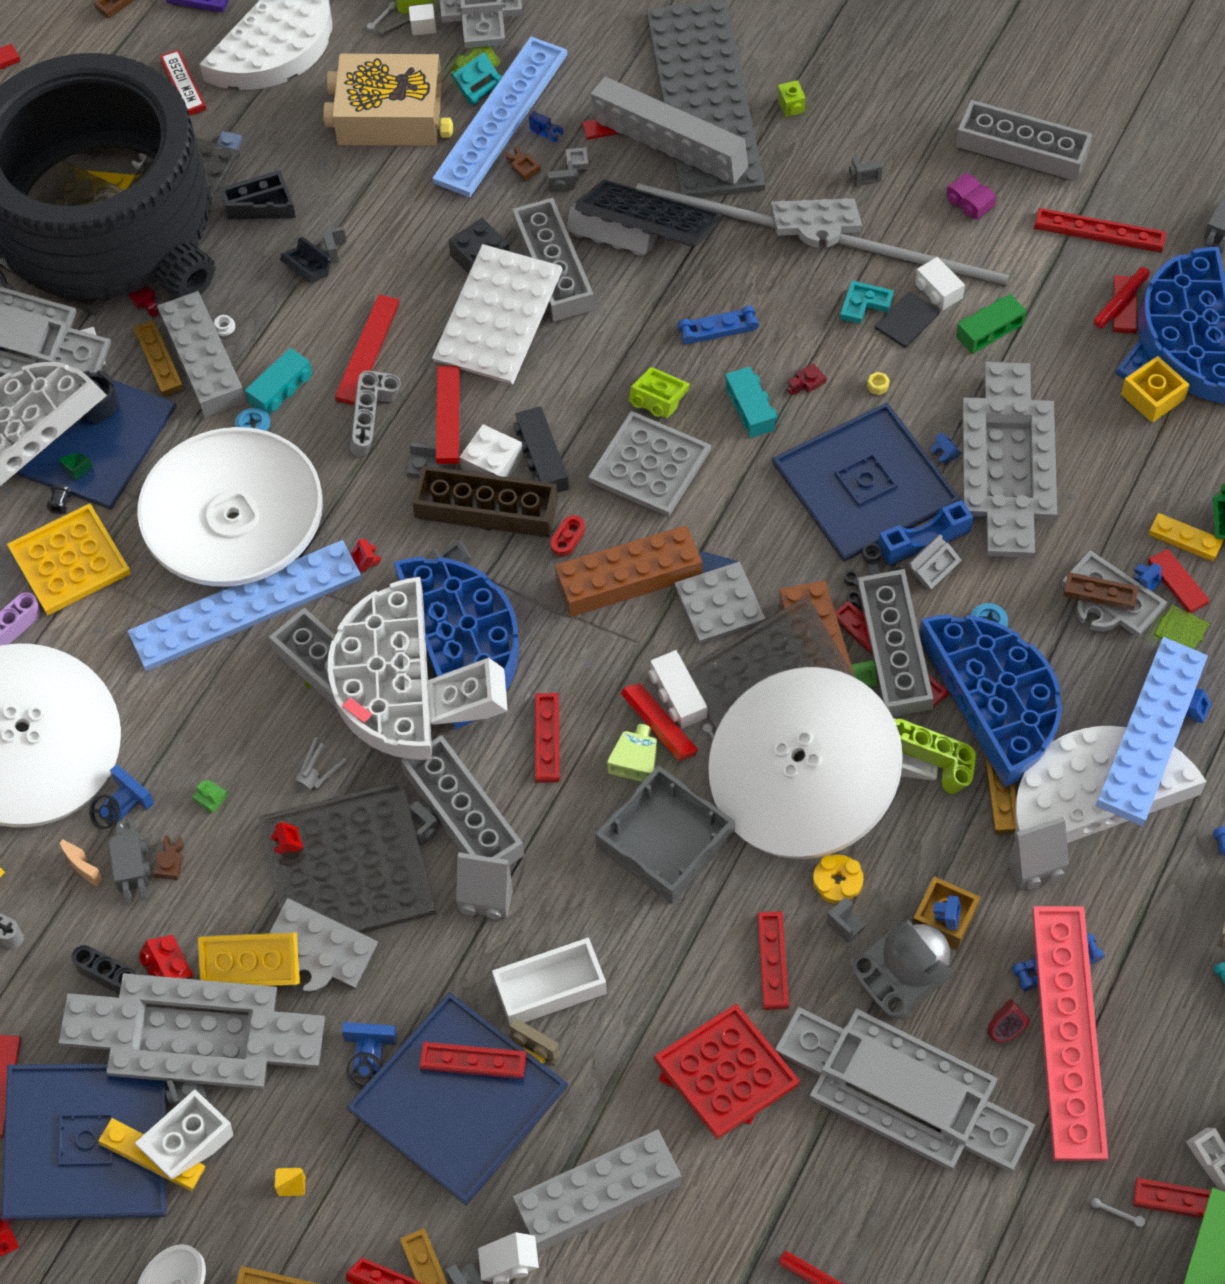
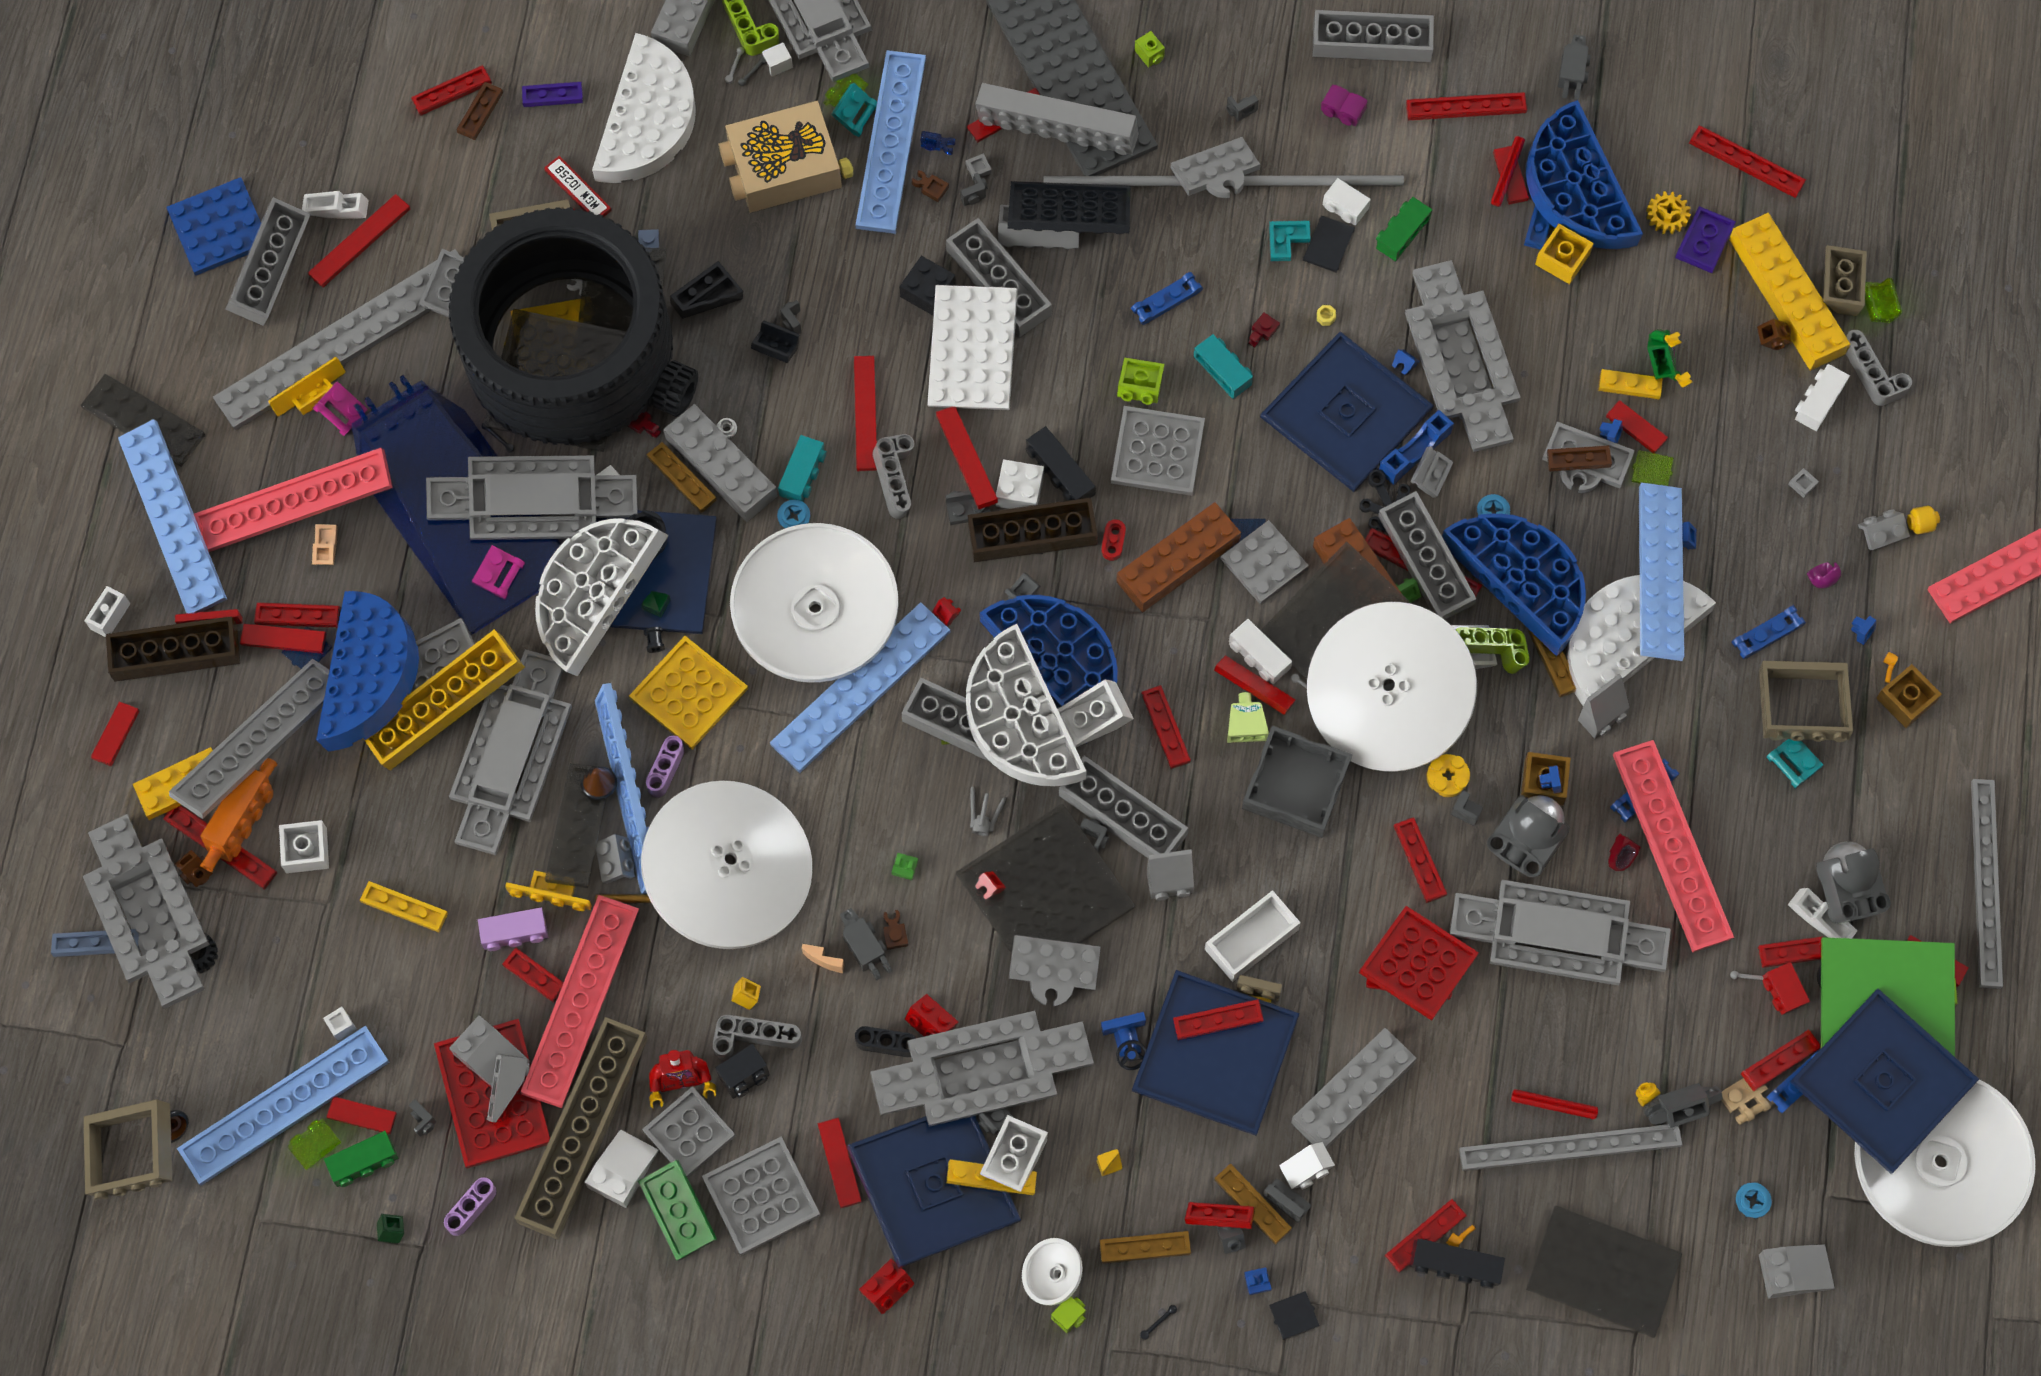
camera: 20 degrees left, 10 degrees up
(121, 801) = (832, 893): blue piece -> none
(250, 958) = (1003, 995): yellow plate -> none
(357, 710) = (1013, 759): coral piece -> none
(1151, 1237) = (1785, 988): none -> red brick

